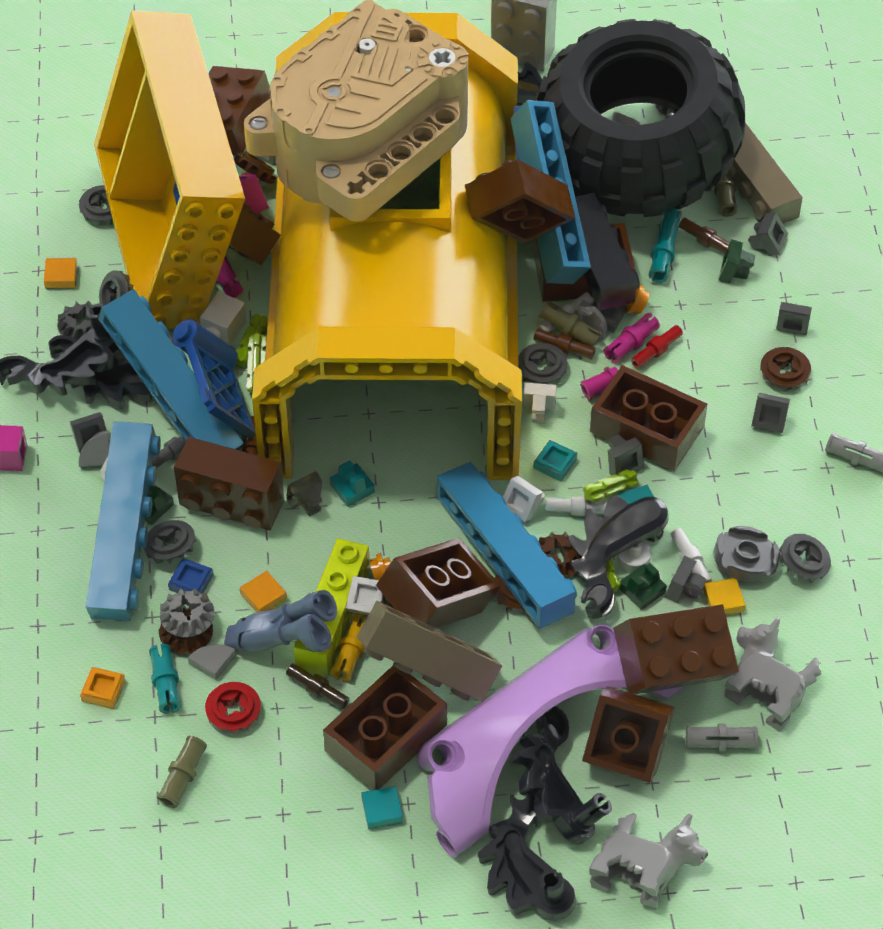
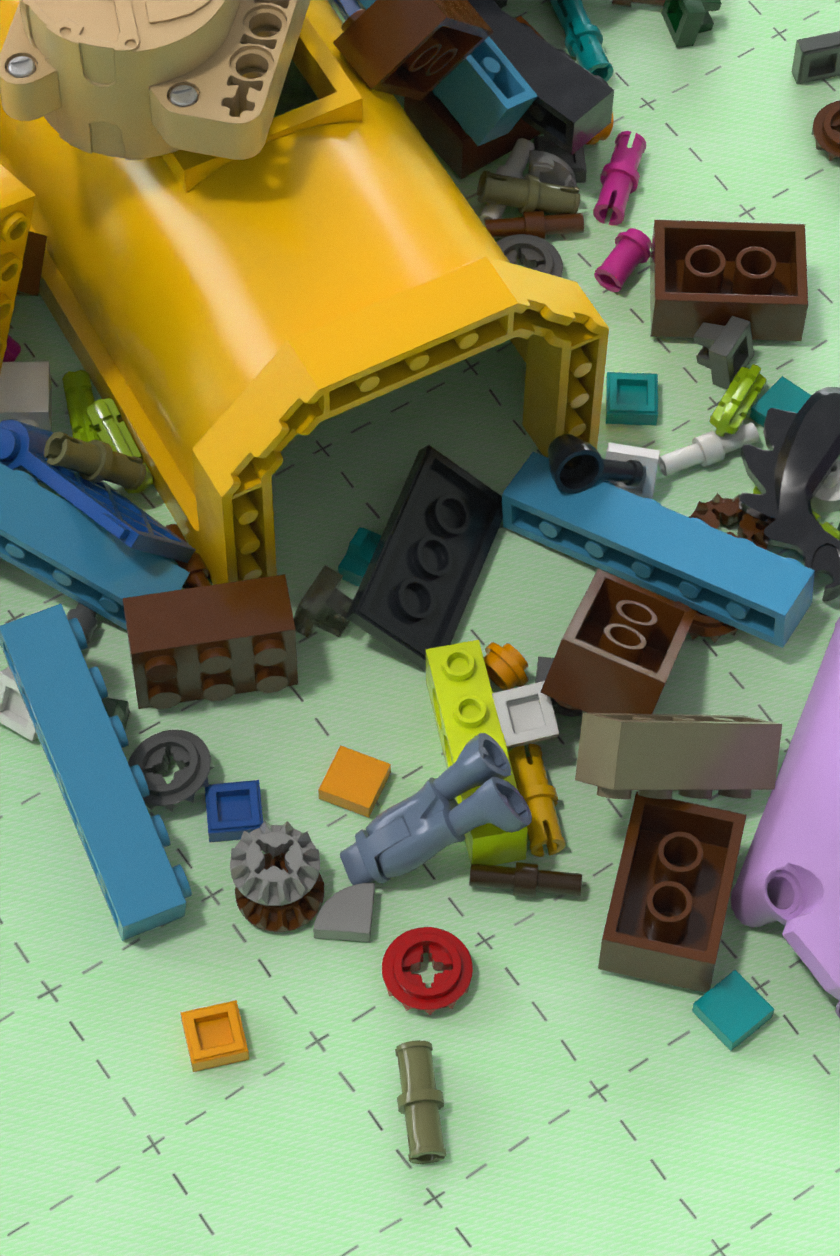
camera: 30 degrees left, 5 degrees up
(165, 678) = (300, 977): teal pin -> none
(227, 362) = (94, 461): none -> olive pin
(377, 492) = (427, 558): none -> black tile
(483, 478) = (578, 466): none -> black bar
(656, 346) = (661, 175): red bar -> none

